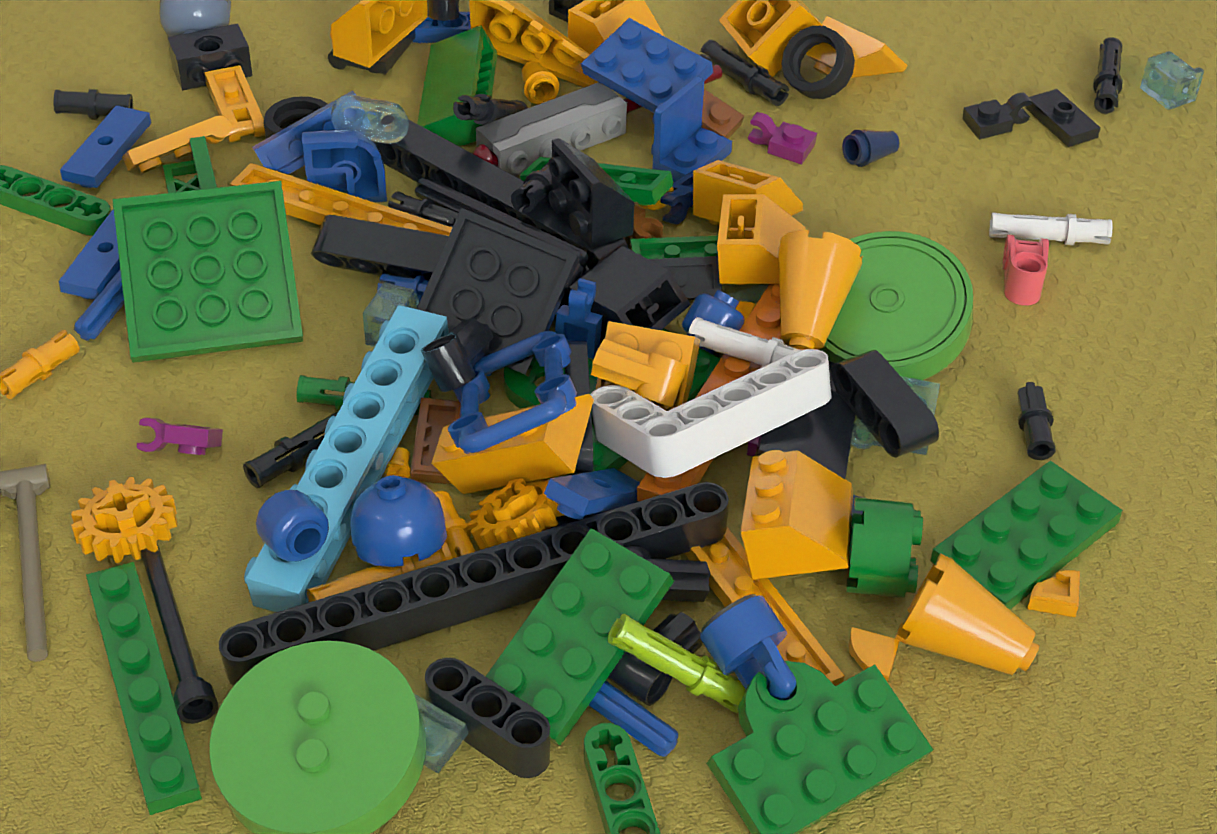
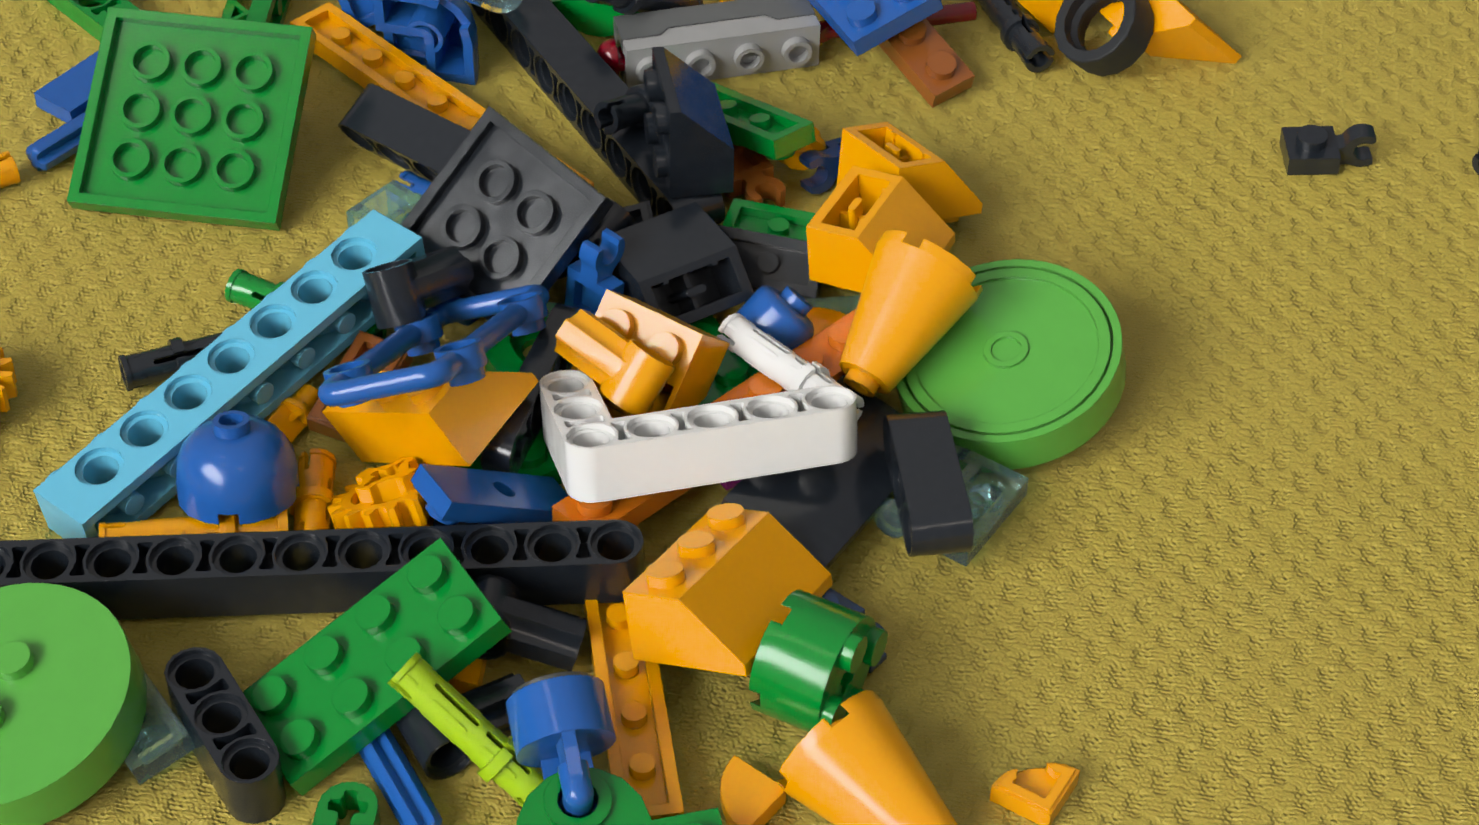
camera: 20 degrees right, 0 degrees up
(190, 438) = (78, 311): magenta plate -> none
(292, 525) = (103, 441): blue head -> none
(423, 208) = (506, 103): black axle -> none
(454, 200) = (580, 142): black axle -> none
(678, 137) = (873, 79): blue bracket -> none
(786, 141) = (1015, 121): magenta plate -> none
(868, 146) = (1121, 150): dark blue cone -> none
(1024, 269) = (1240, 359): coral piece -> none
(1030, 533) = (1039, 705): green plate -> none
(1036, 422) = (1136, 561): black axle -> none
(1052, 228) = (1320, 317): white pin -> none
(1063, 118) = (1418, 171): black plate -> none

